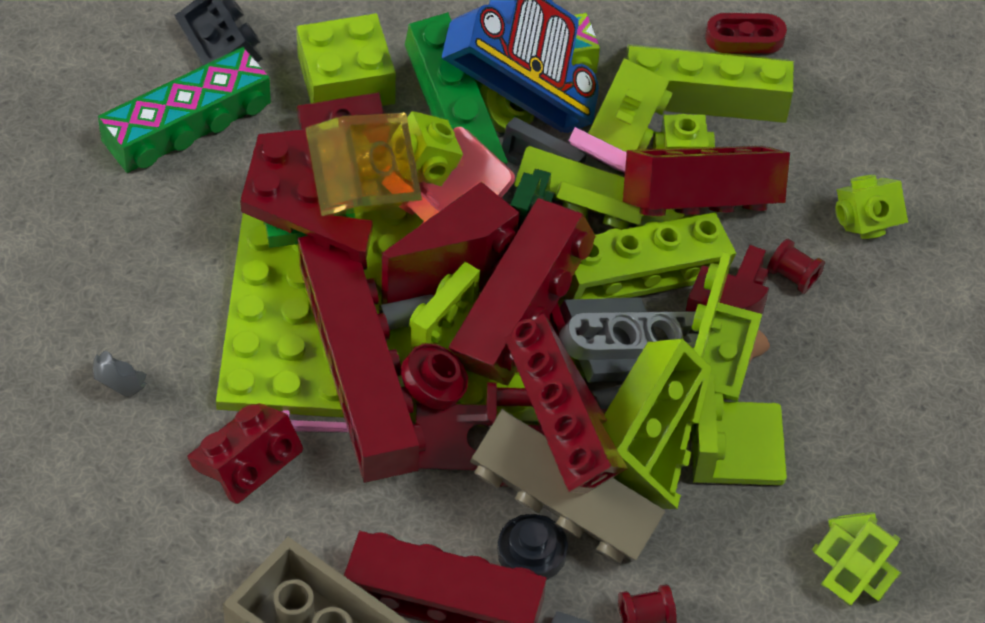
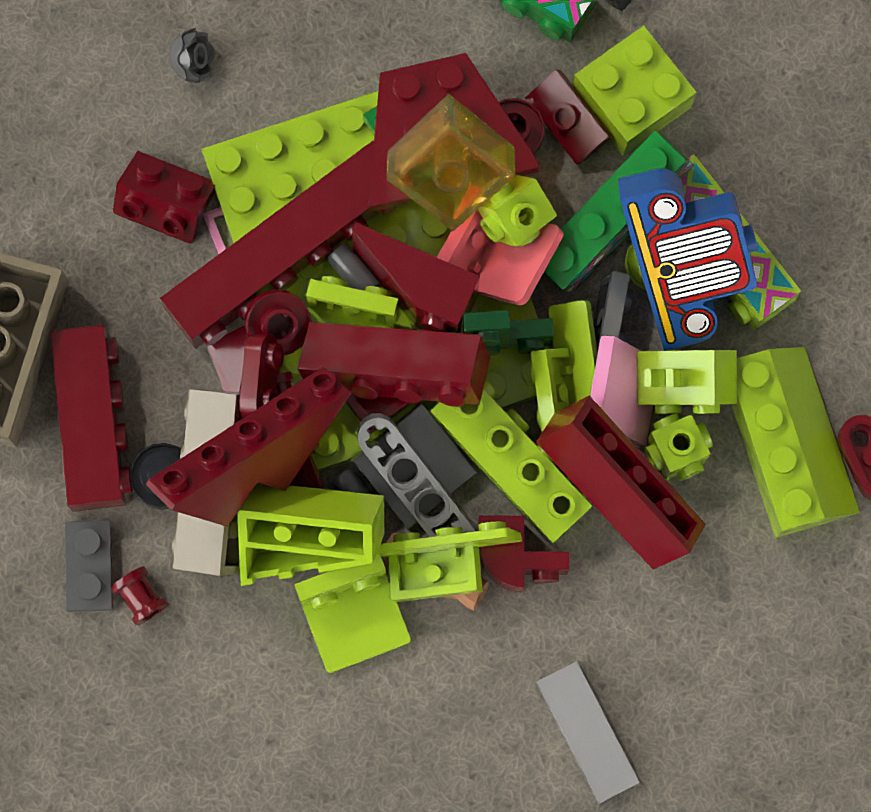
camera: 70 degrees right, 25 degrees up
(475, 385) = (259, 372): none -> dark red plate
(795, 265) = (580, 604): dark red bush -> none
(853, 568) = (281, 748): lime piece -> none
(871, 205) = (681, 653): lime brick -> none
(913, 306) = (587, 732): none -> light grey tile

